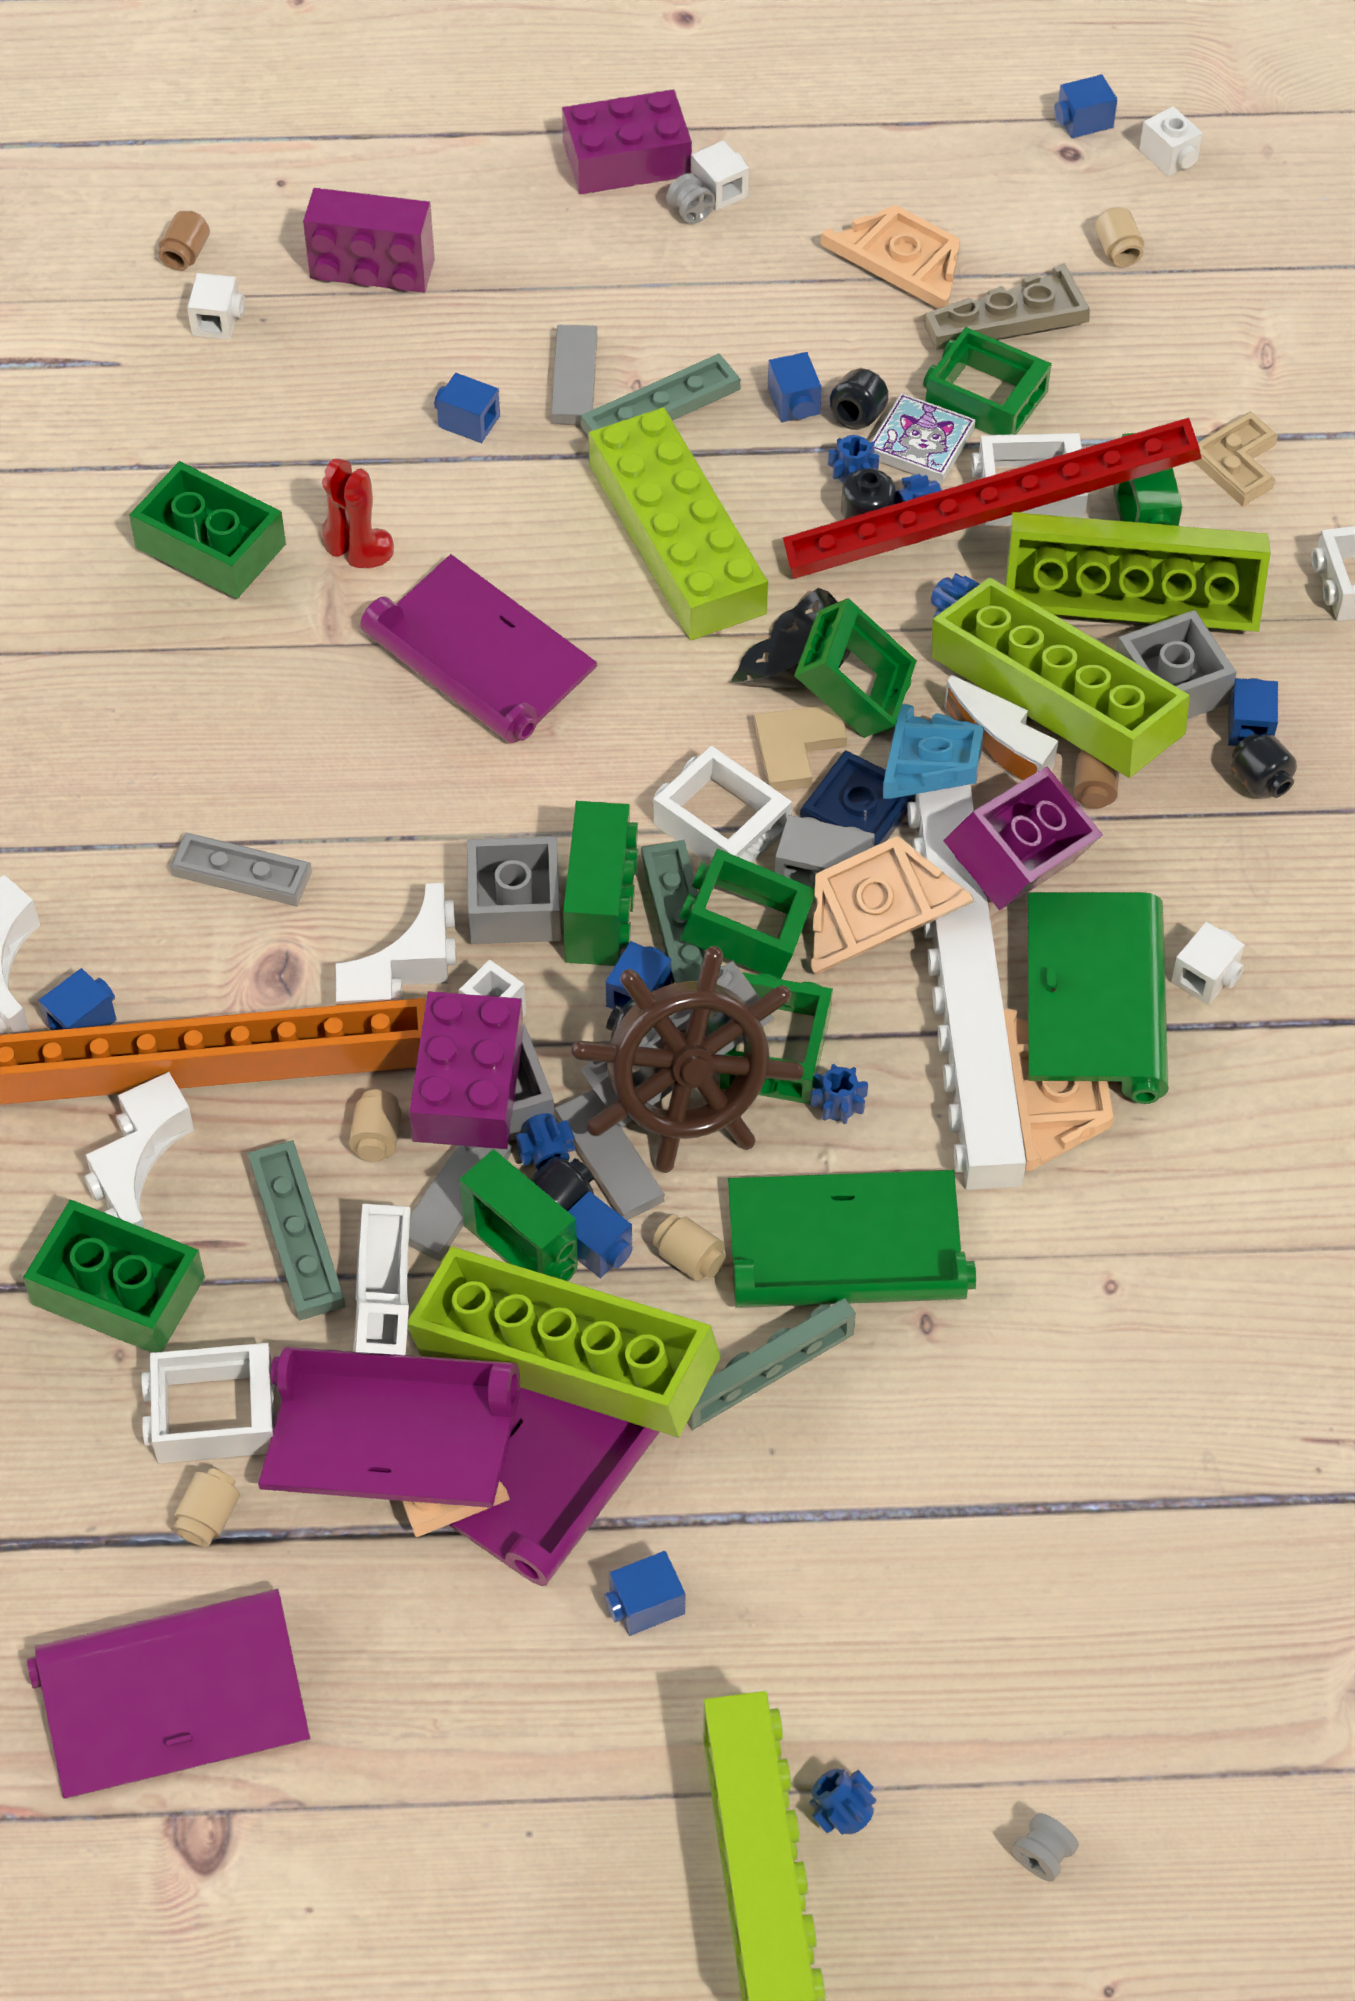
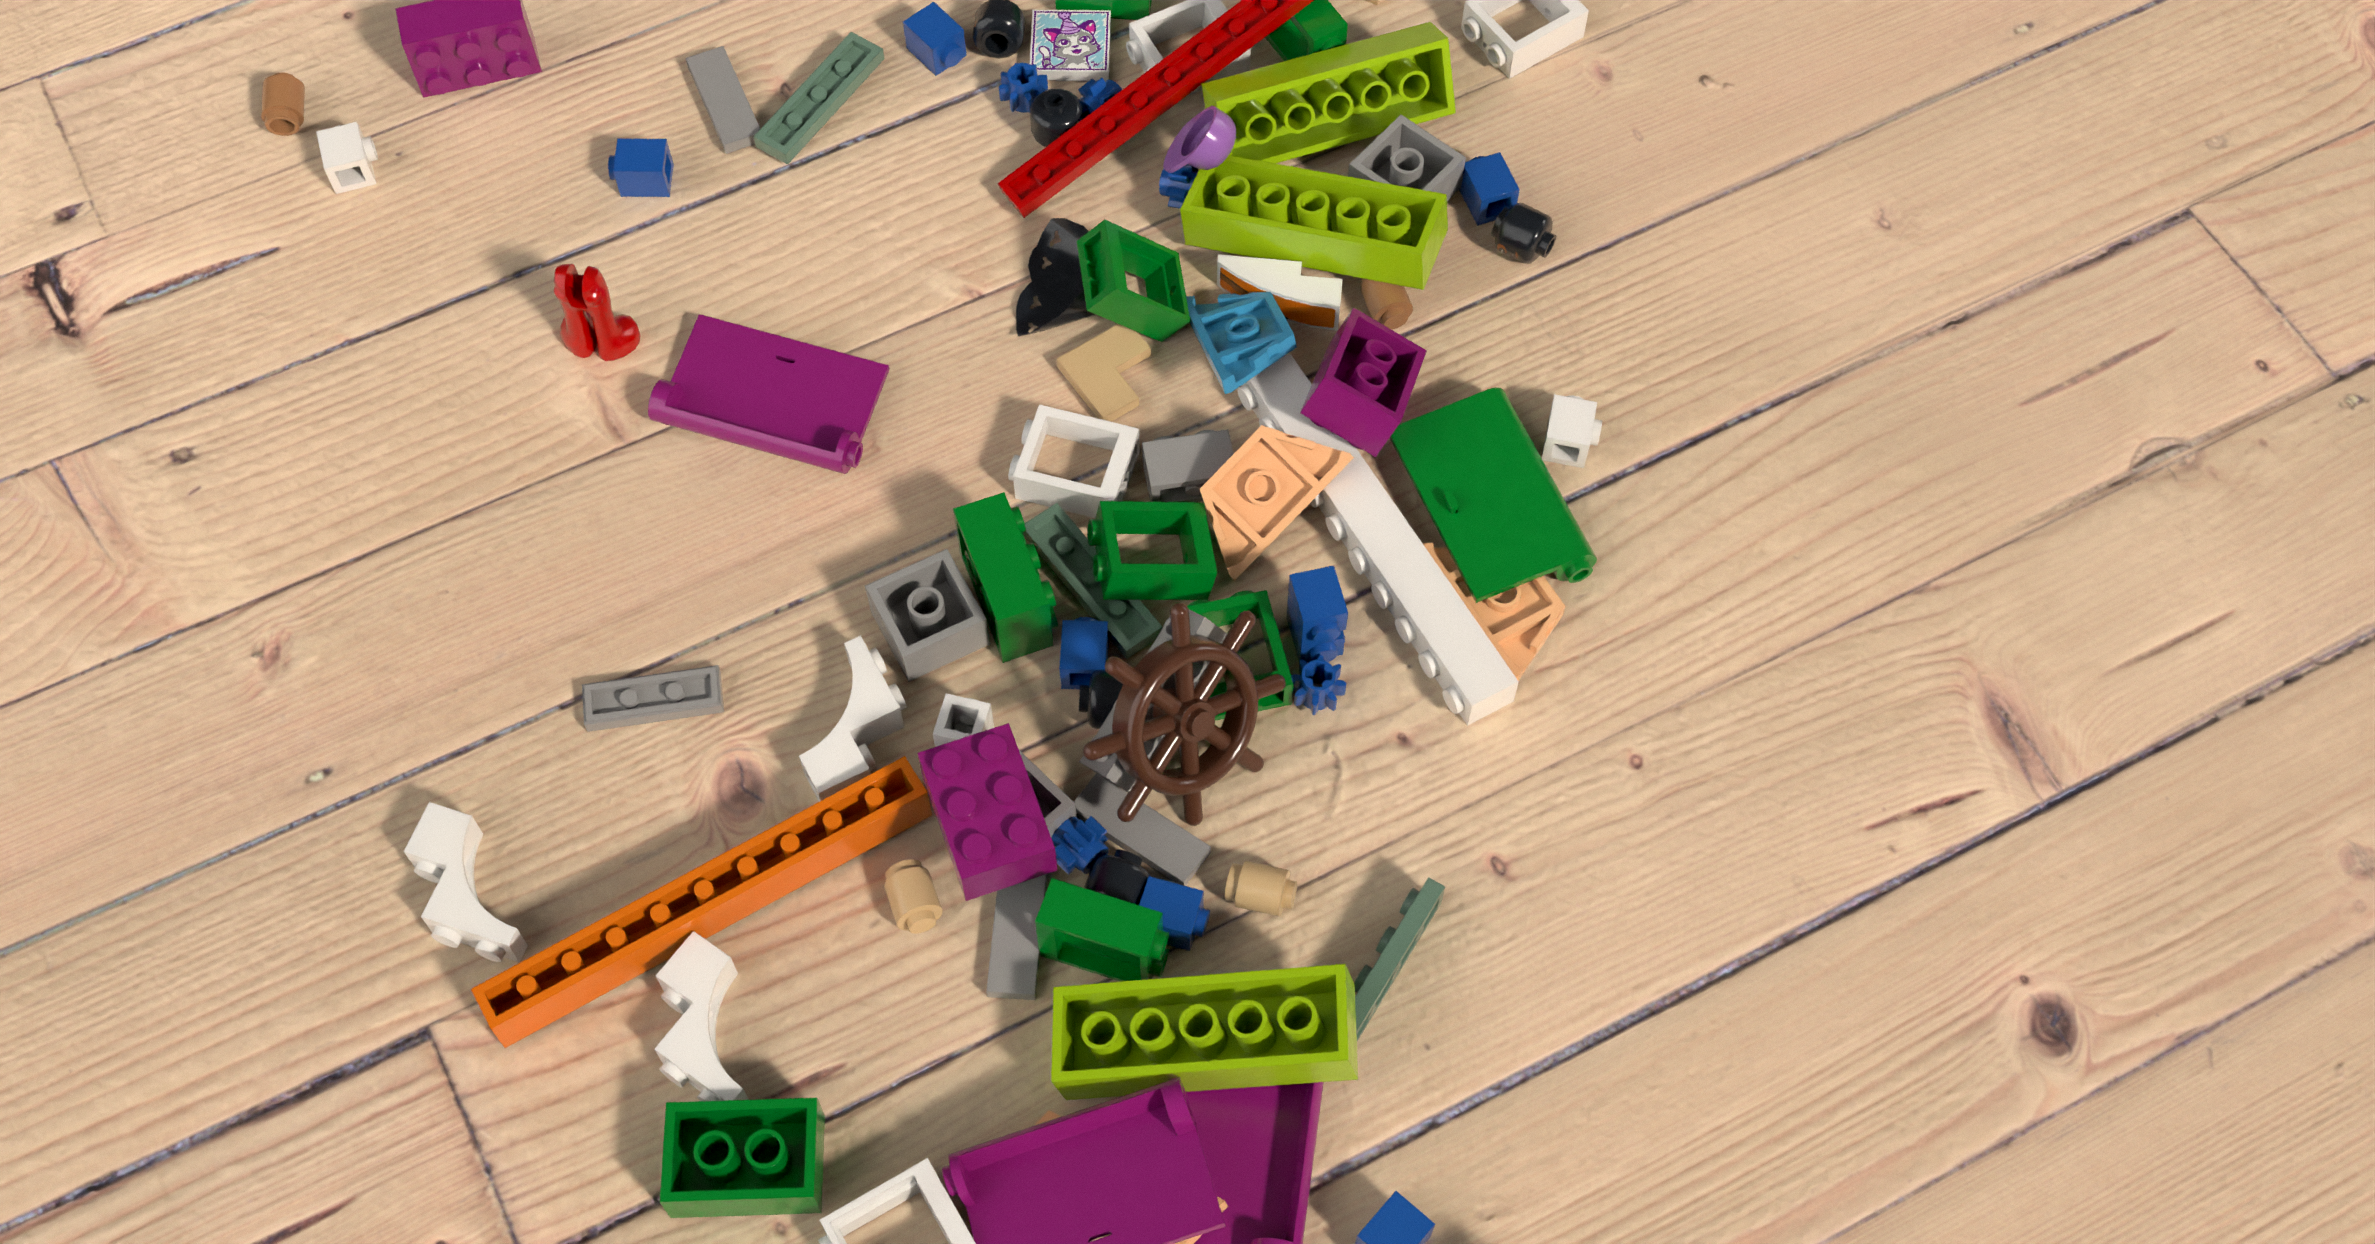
camera: 25 degrees left, 5 degrees up
(78, 1003) = (567, 901): blue brick -> none
(208, 529) = (454, 379): green brick -> none
(296, 1230) = (890, 1031): sand green plate -> none
(382, 1280) = (1004, 1053): white arch -> none
(678, 523) = (895, 205): lime brick -> none
(847, 1239) = (1373, 837): green door -> none
(854, 798) = (1186, 401): dark blue tile -> none
(867, 1027) = (1316, 614): none -> blue brick
(987, 565) = (1202, 141): none -> medium lavender cap

